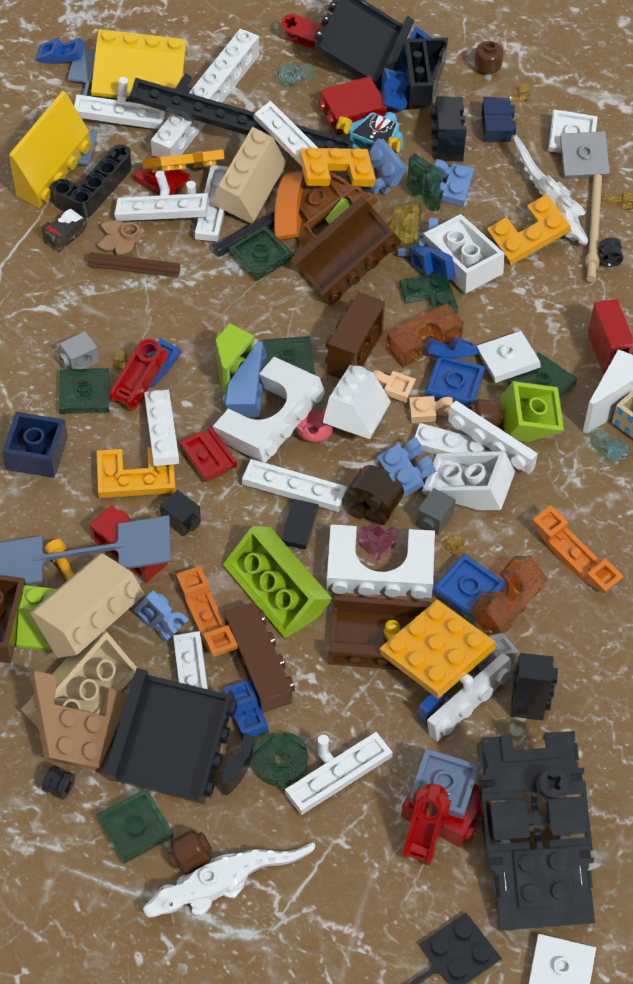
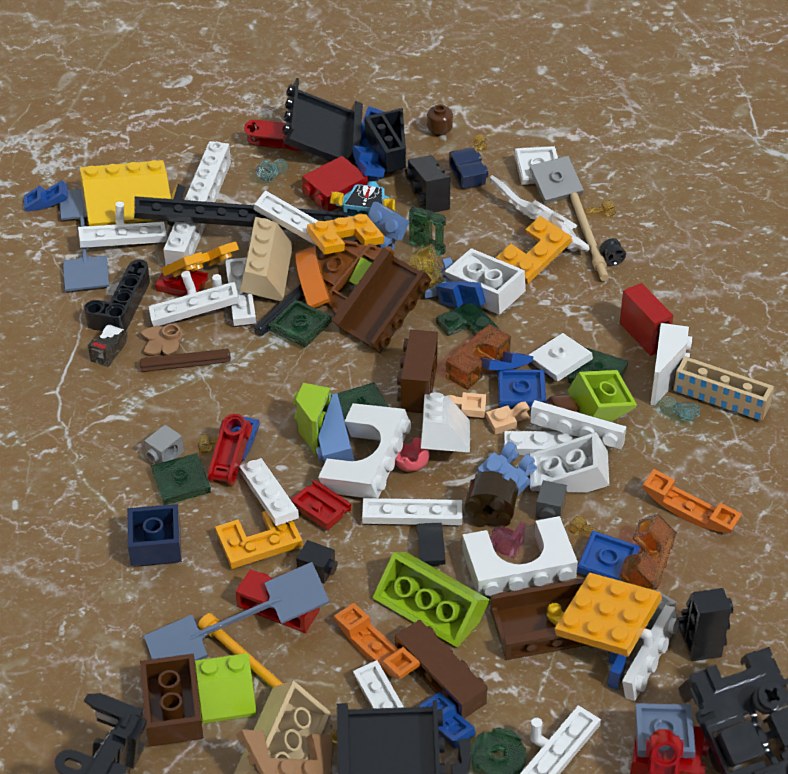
camera: 15 degrees left, 10 degrees down
(49, 151) = (73, 279): yellow slope -> none
(86, 605) = (264, 662): tan slope -> none
(156, 614) = (332, 654): medium blue plate -> none
(457, 183) = (454, 229): medium blue plate -> none

